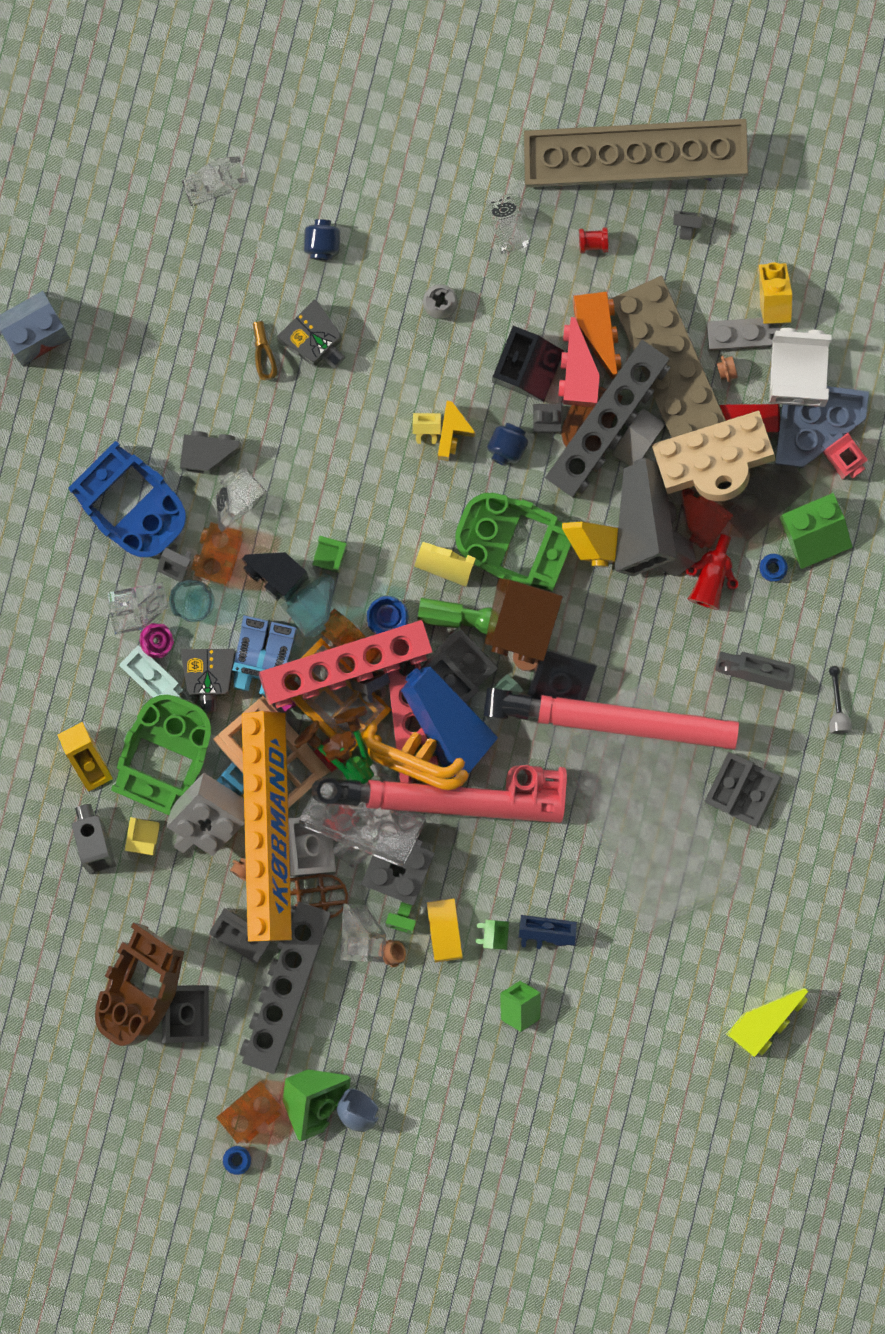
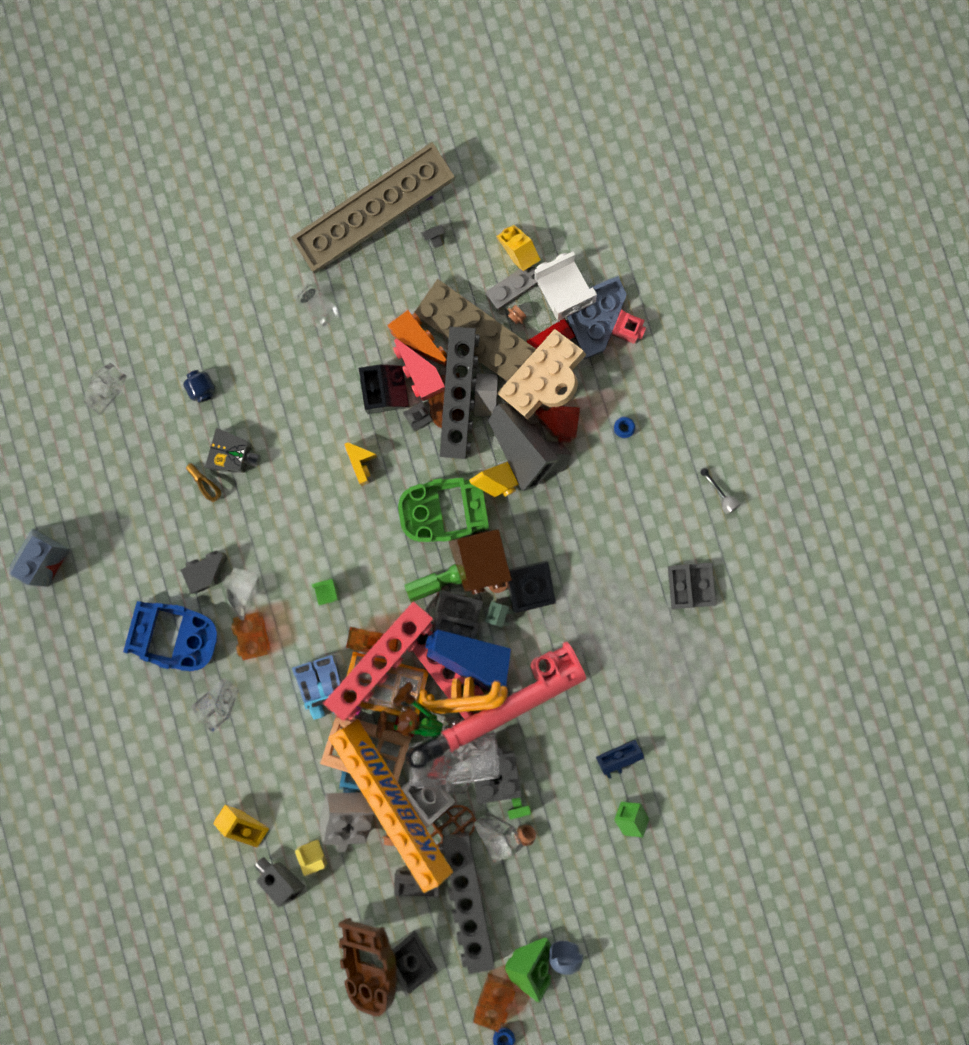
camera: 30 degrees left, 0 degrees up
(150, 674) = (257, 745): light aqua hinge -> none
(164, 640) = (250, 718): dark pink plate -> none
(172, 725) = (286, 770): bright green slope -> none
(174, 564) = (225, 660): dark grey tile -> none
(191, 600) = (251, 677): clear light blue hair -> none
(208, 674) = (291, 721): dark grey torso -> none
(278, 571) = (297, 624): black slope -> none
(311, 606) = (333, 635): clear light blue slope -> none
(370, 685) = (408, 661): dark grey tile -> none
(386, 614) = (388, 610): blue hair -> none
(426, 424) = (340, 467): light yellow tile -> none
(437, 291) = (307, 385): light grey piece -> none
(444, 930) = (551, 798): yellow slope -> none
(445, 563) = (406, 552): light yellow slope -> none
(494, 934) = (586, 781): bright green tile -> none
(507, 444) = (401, 449): dark blue head -> none
(593, 240) = (379, 282): red bush -> none
(613, 719) = (629, 570): coral piece -> none
(715, 567) = (587, 451): red piece -> none
(757, 669) = (654, 501): dark grey hinge -> none
(759, 1024) = (797, 735): neon yellow slope -> none
(764, 498) = (593, 383): clear smoke plate -> none
(816, 531) = (638, 386): bright green slope -> none

